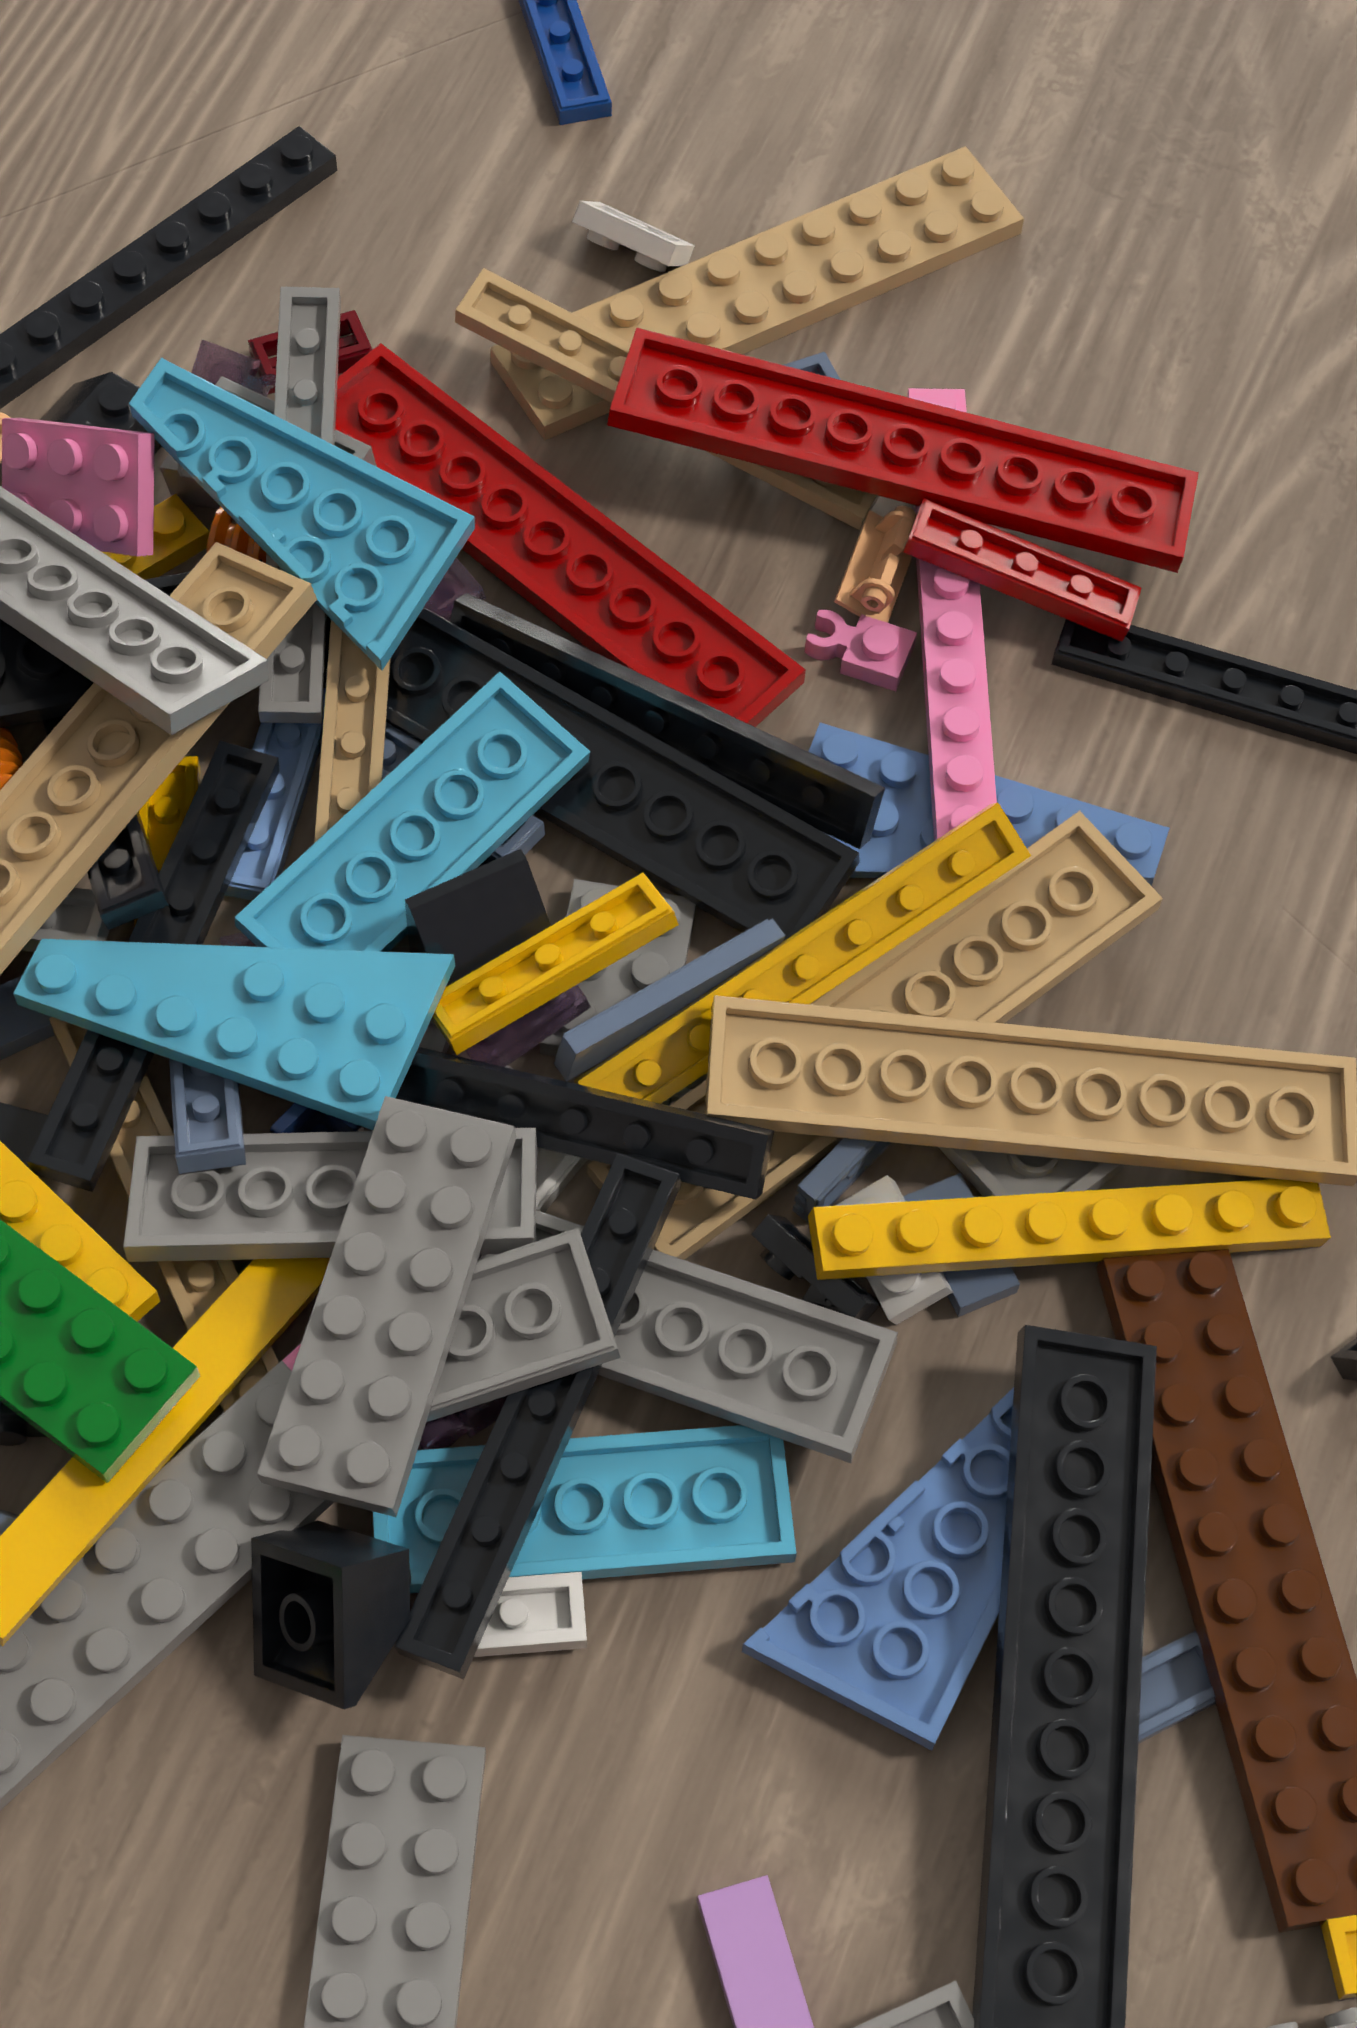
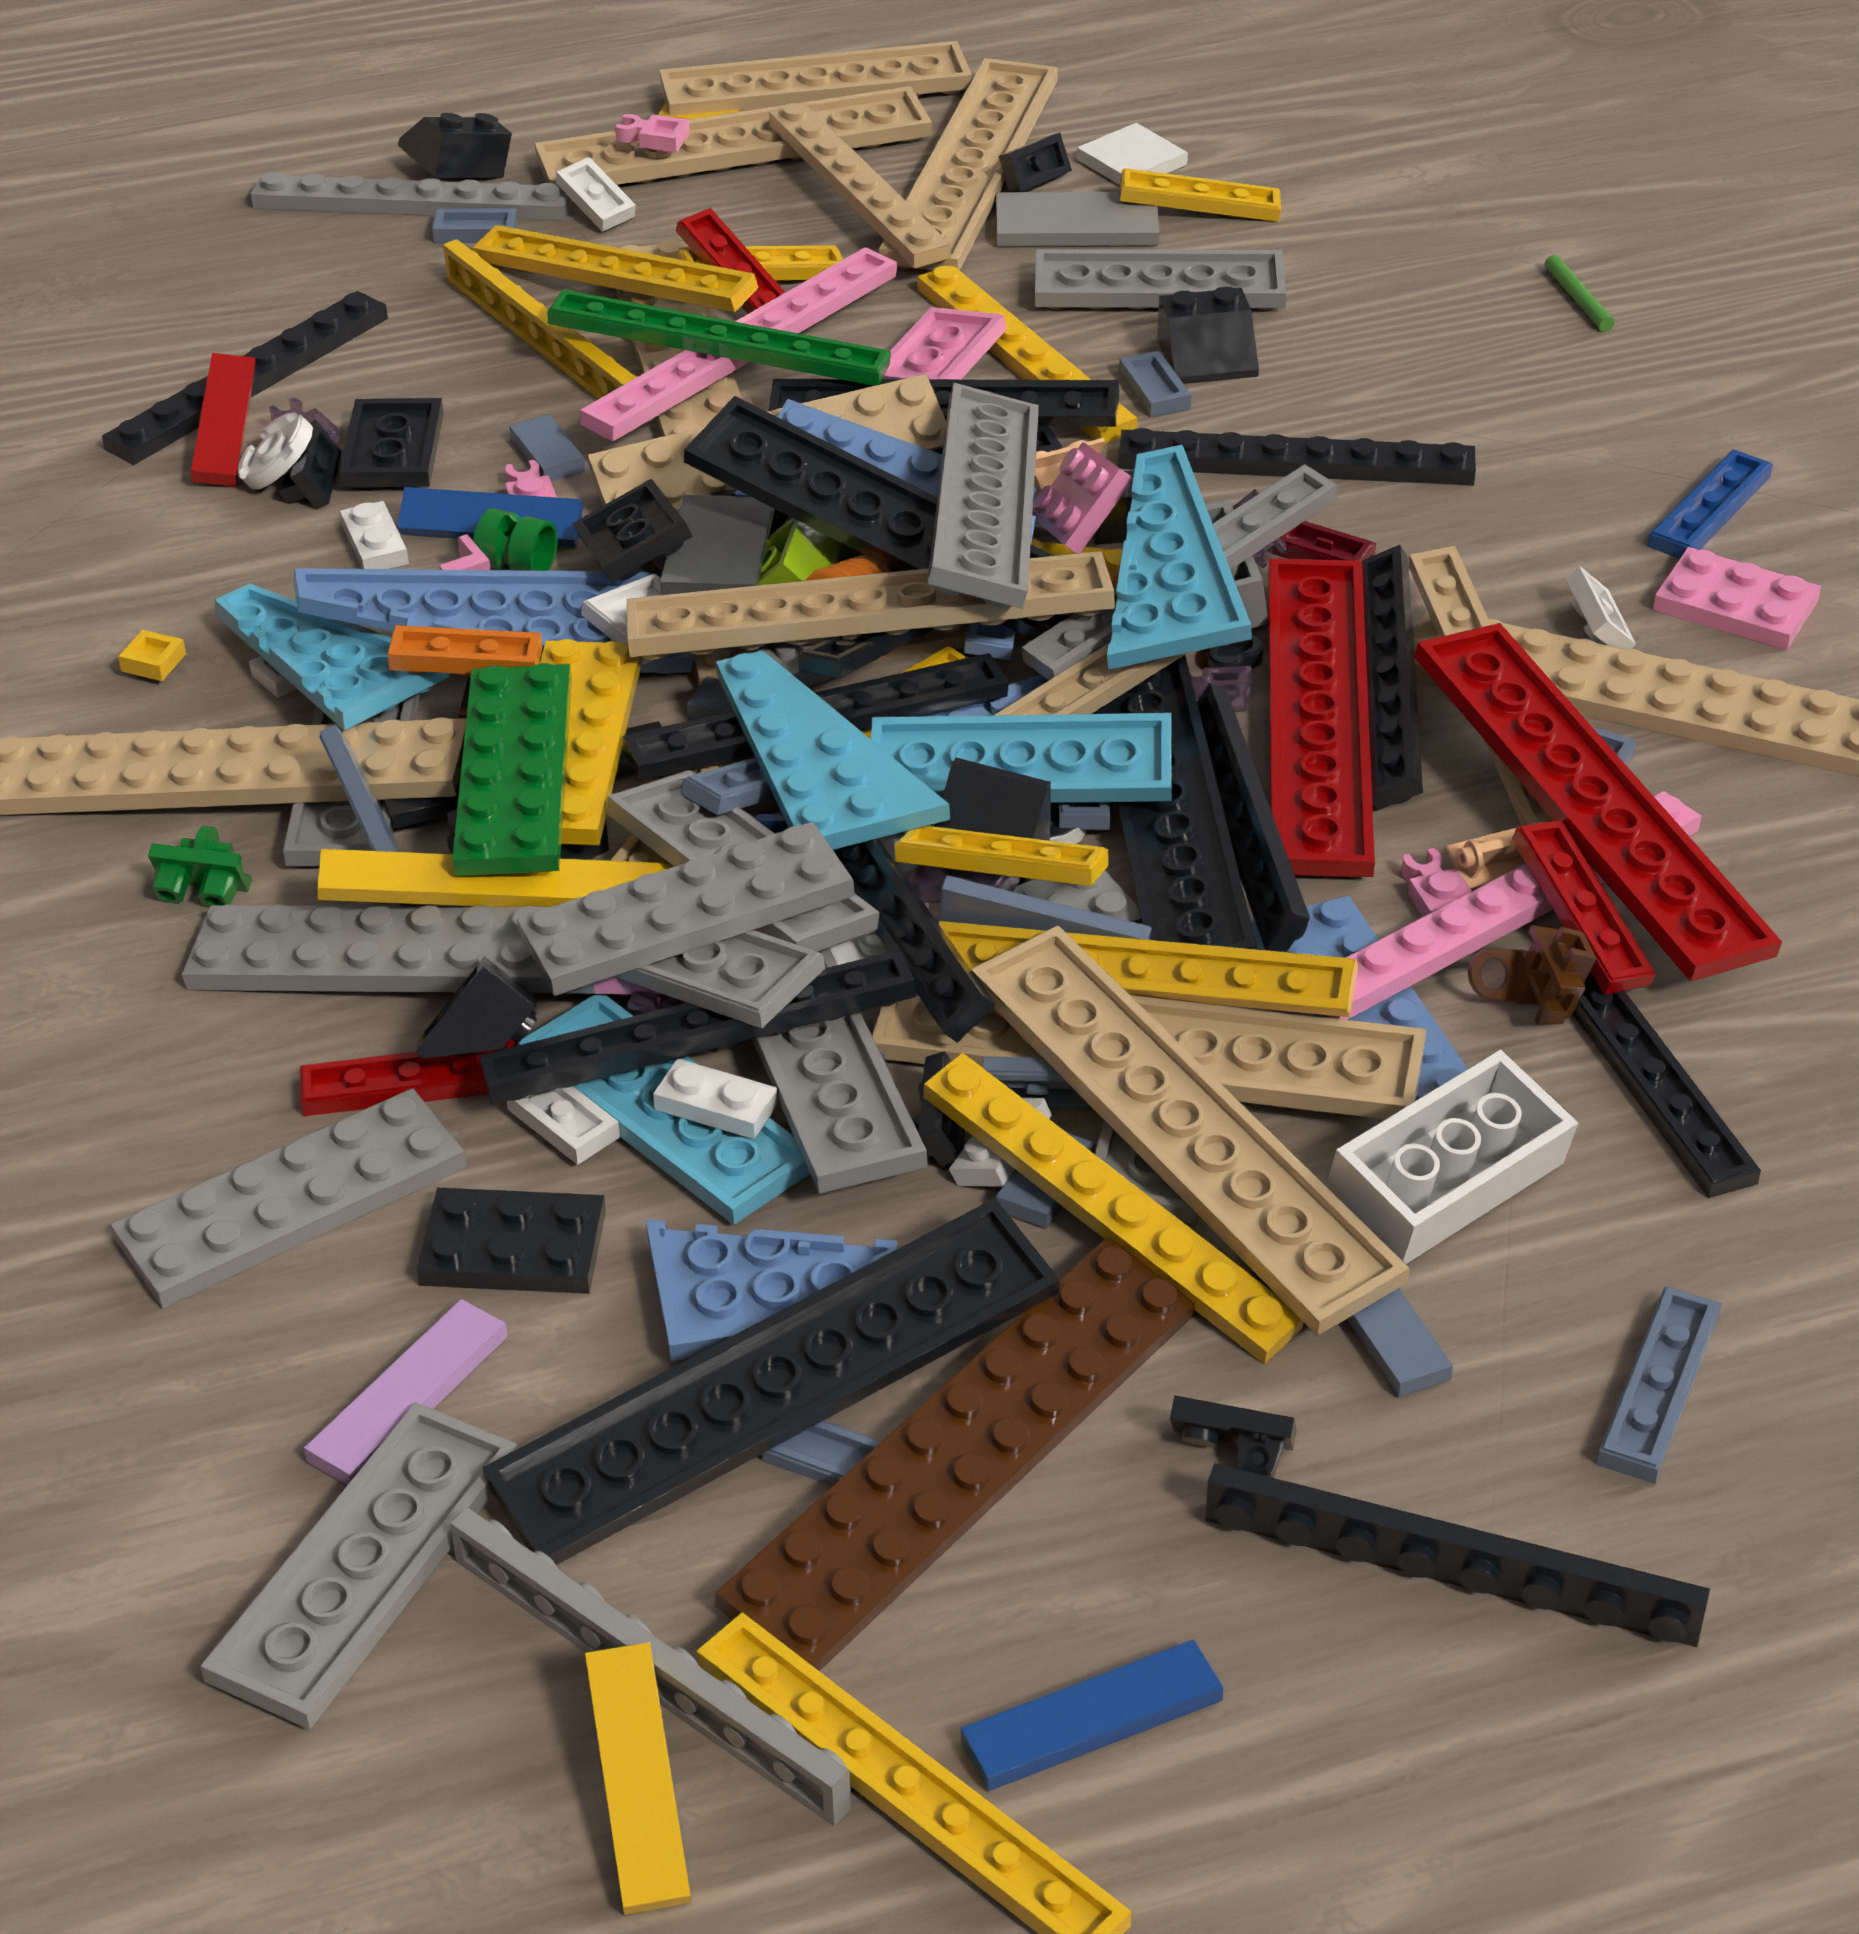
camera: 55 degrees right, 20 degrees down
(282, 1771) = (371, 1080): none -> red tile
(562, 450) = (1391, 679): none -> black plate
(638, 1460) = (716, 1098): none -> white plate
(641, 1786) = (512, 1240): none -> black plate
(703, 127) = (1737, 598): none -> bright pink plate
(1055, 672) = (1545, 974): none -> reddish brown piece
(1245, 919) = (1452, 1156): none -> white brick

